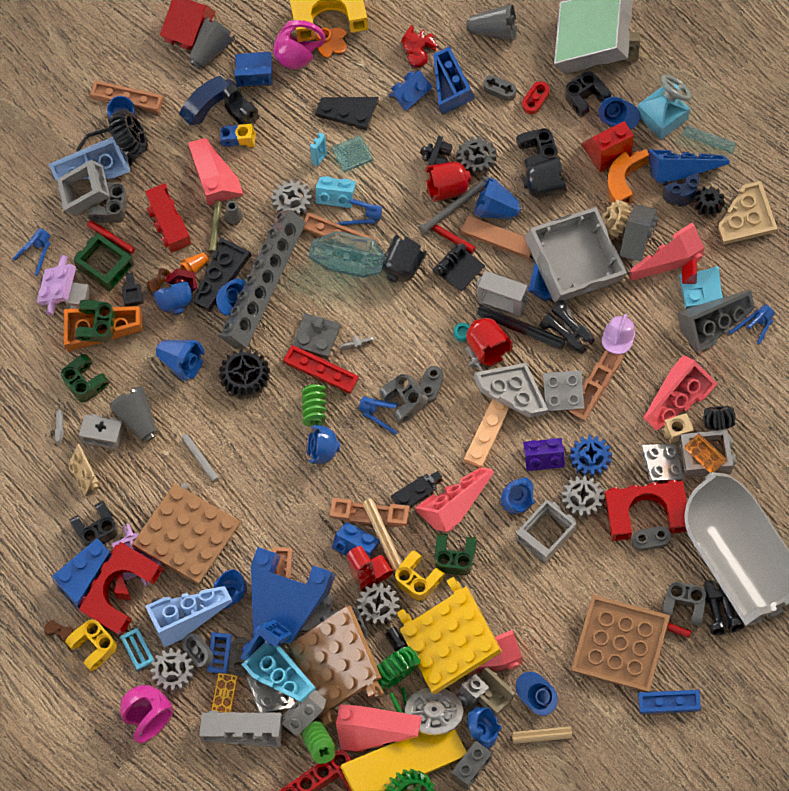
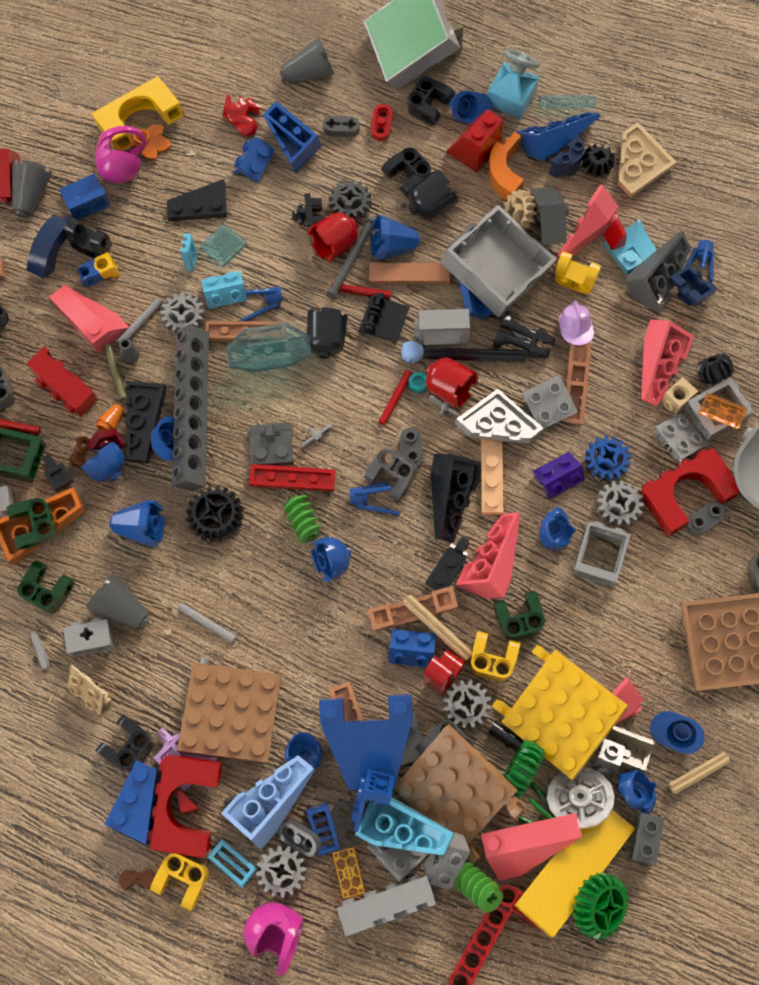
camera: 25 degrees left, 5 degrees up
(255, 191) = (141, 319): none -> light grey bar
(438, 336) = (395, 398): none -> red piece
(448, 428) = (451, 486): none -> black wedge
(468, 304) = (412, 351): none -> light blue piece
(638, 291) = (575, 275): none -> yellow piece
(736, 340) = (691, 286): none -> dark blue cylinder

